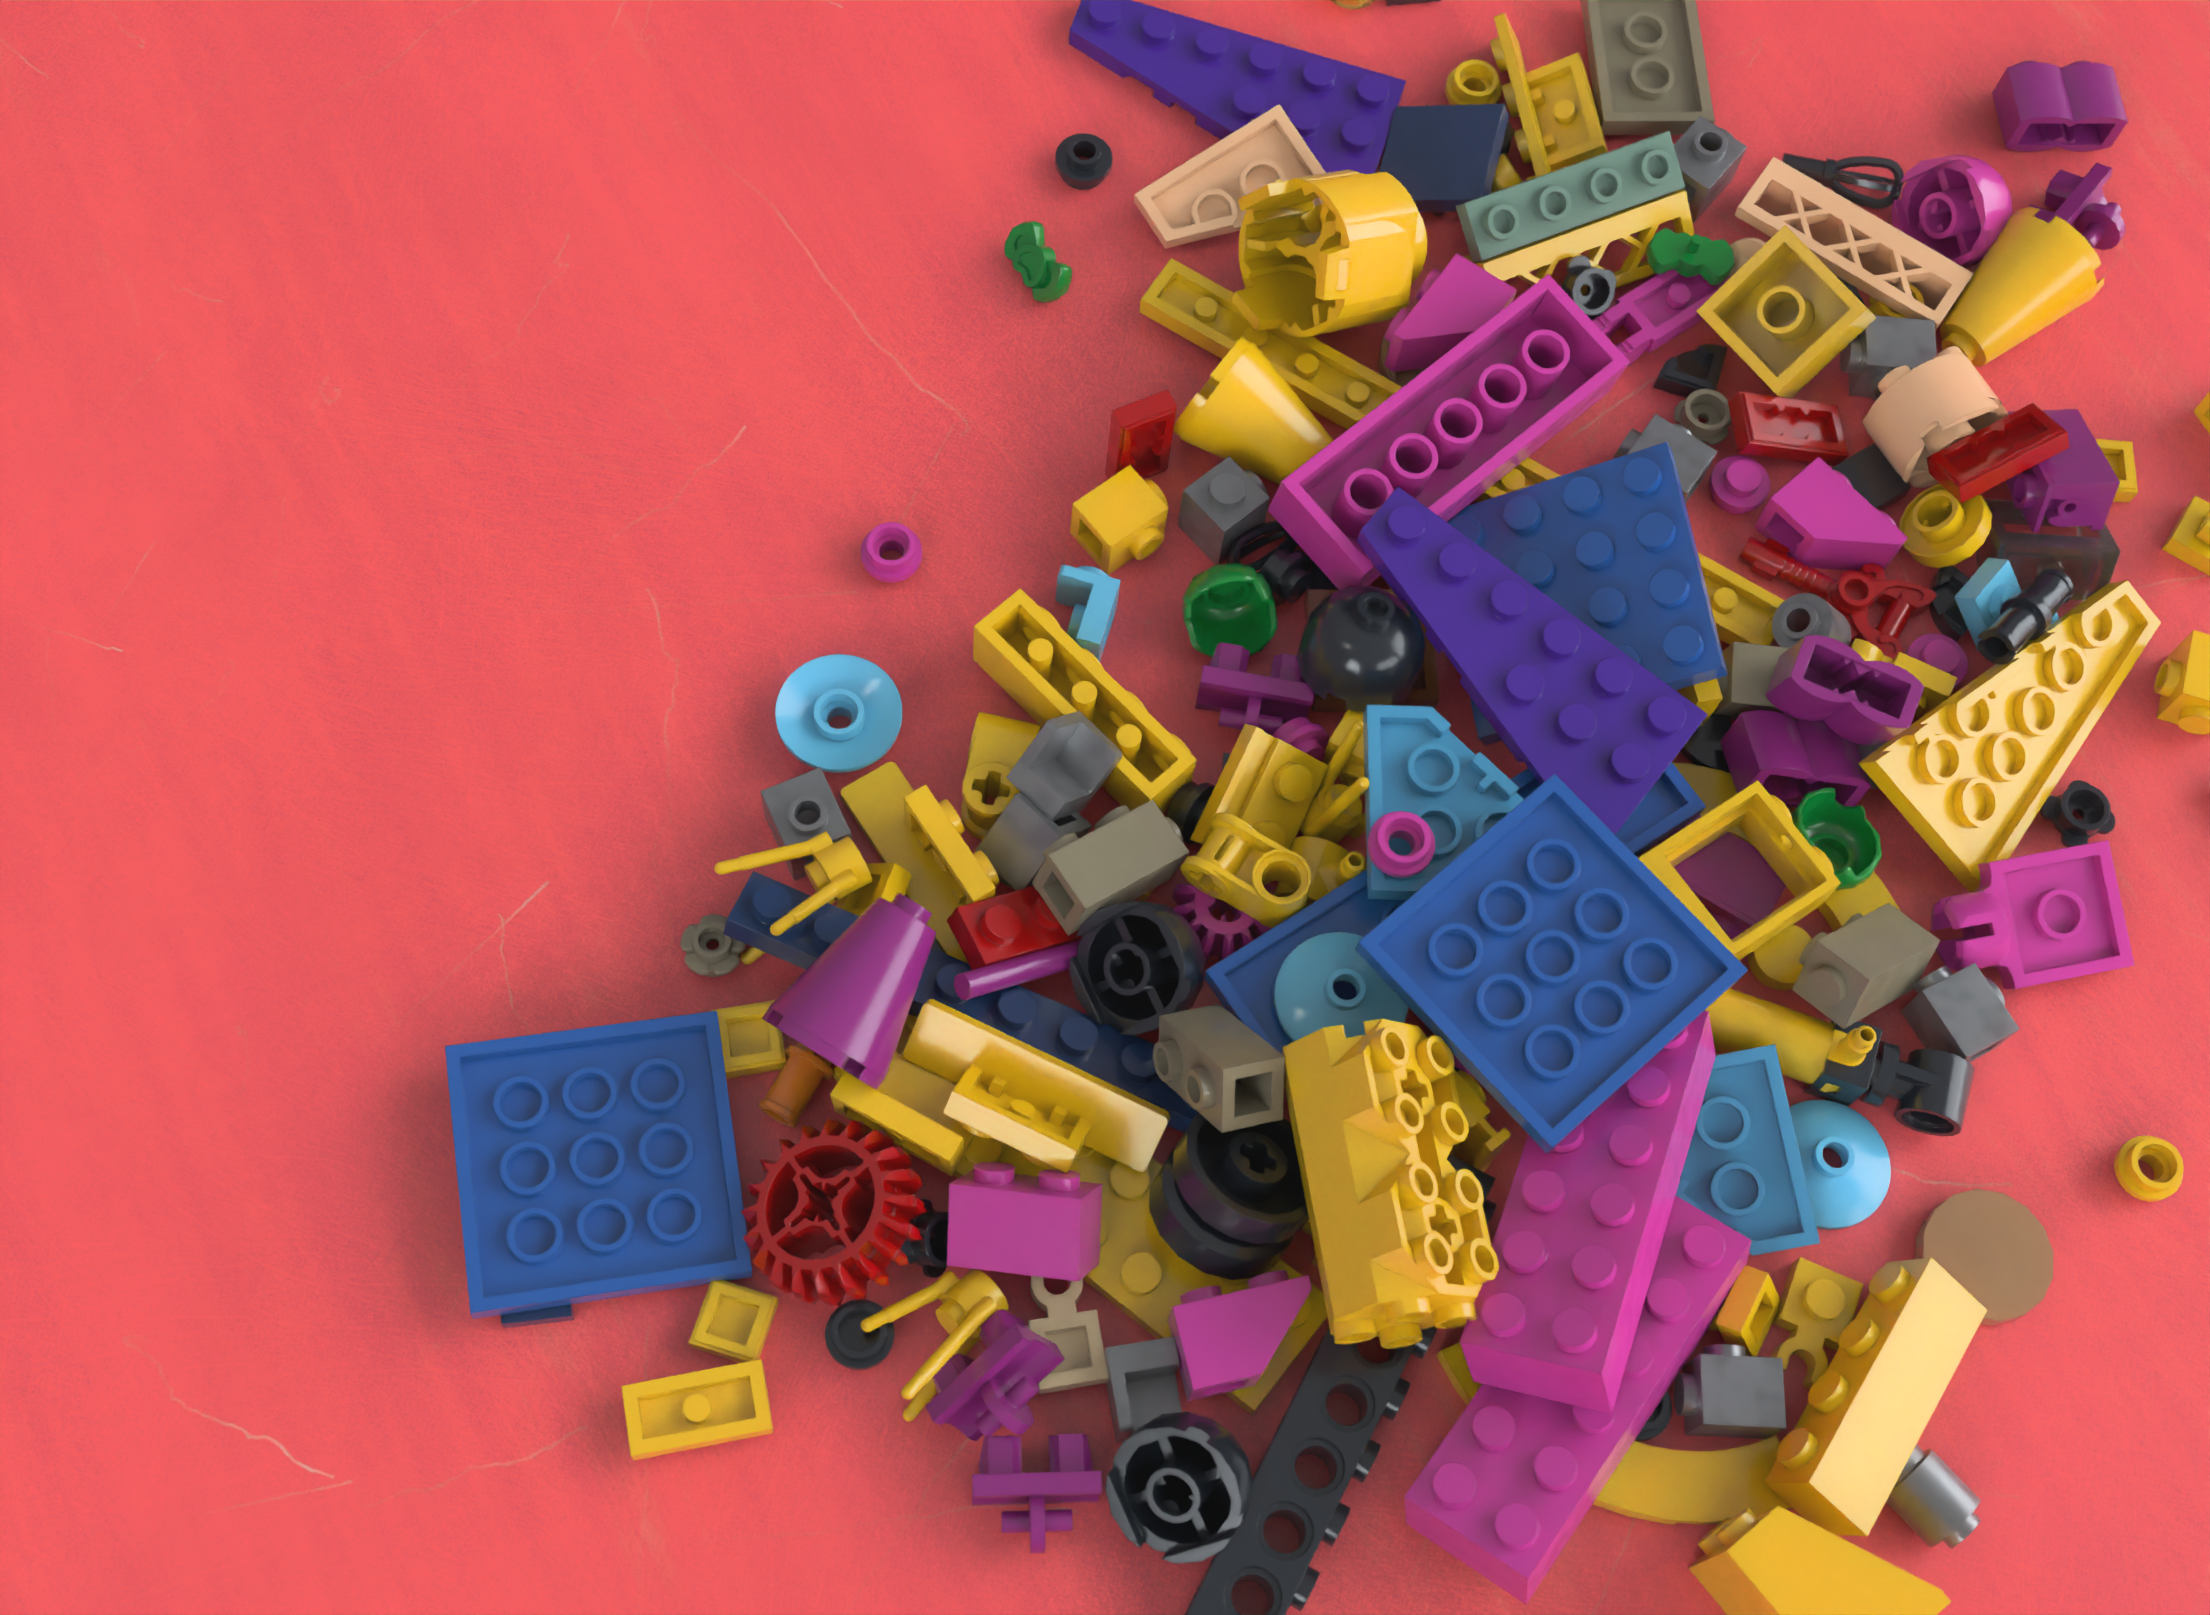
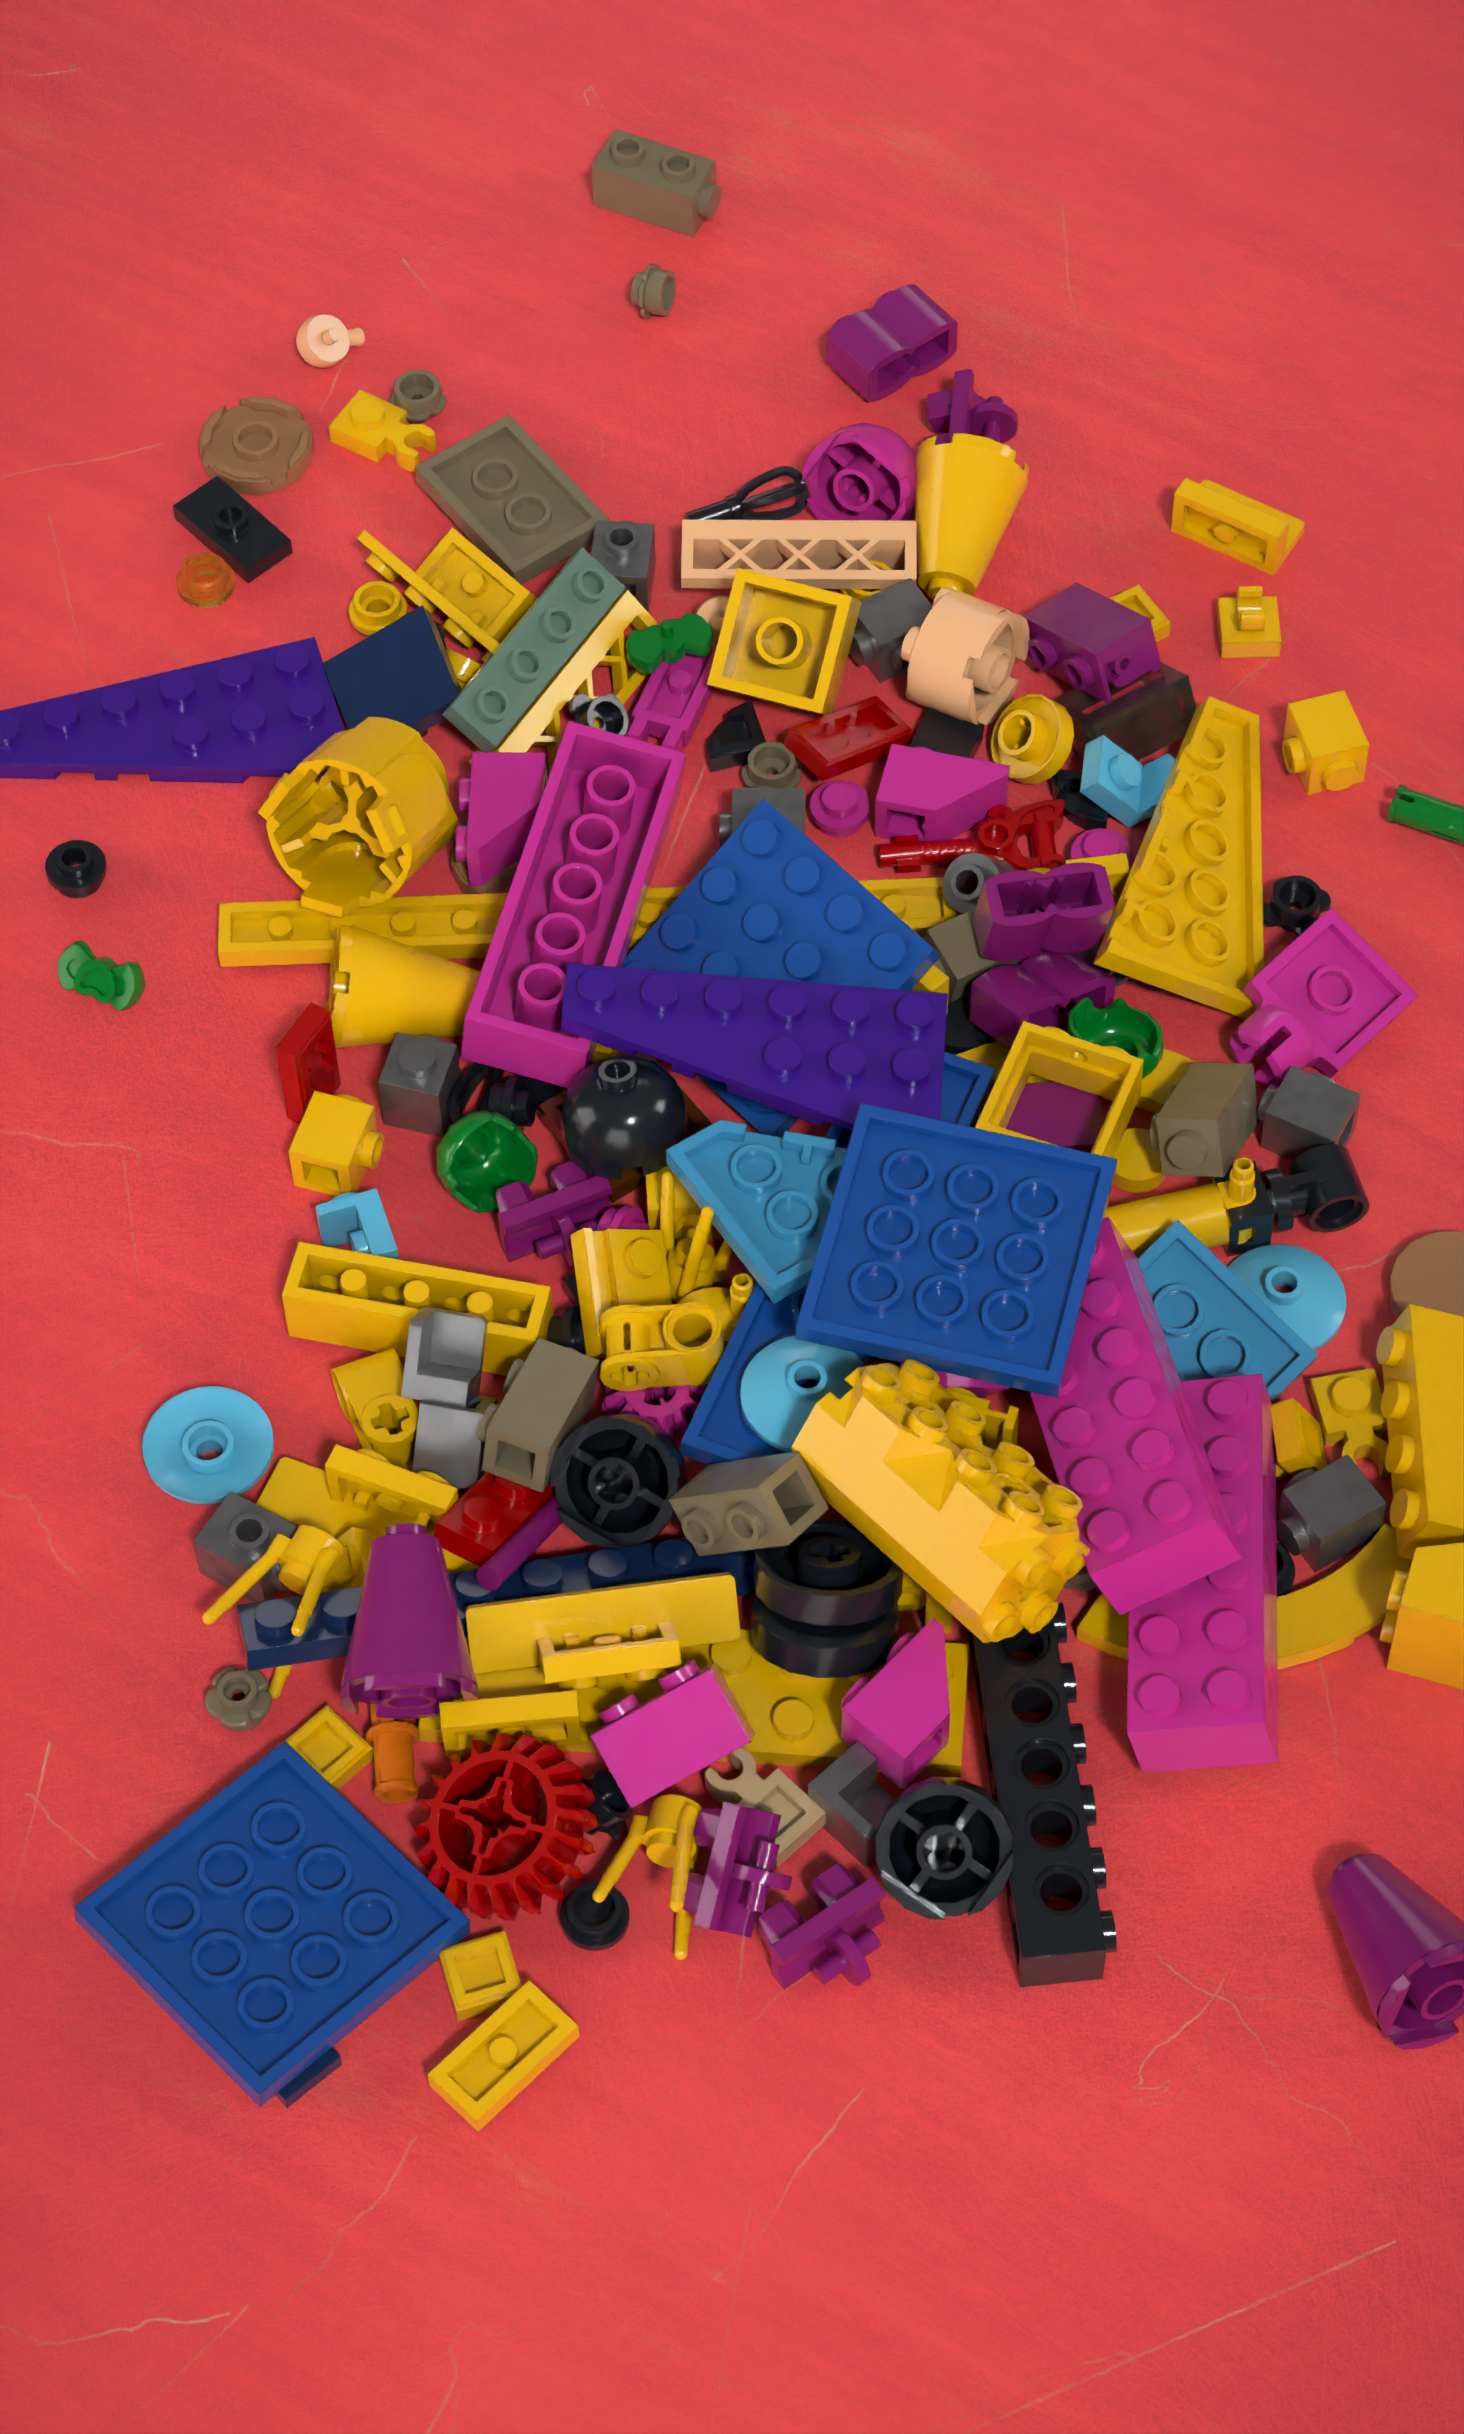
camera: 25 degrees left, 10 degrees down
(891, 537) = (147, 1277): dark pink plate -> none
(1202, 194) = (219, 813): light nougat wing -> none
(1403, 826) = (773, 1221): dark pink plate -> none
(1997, 452) = (1036, 653): red plate -> none
(2025, 616) = (1147, 771): black pin -> none

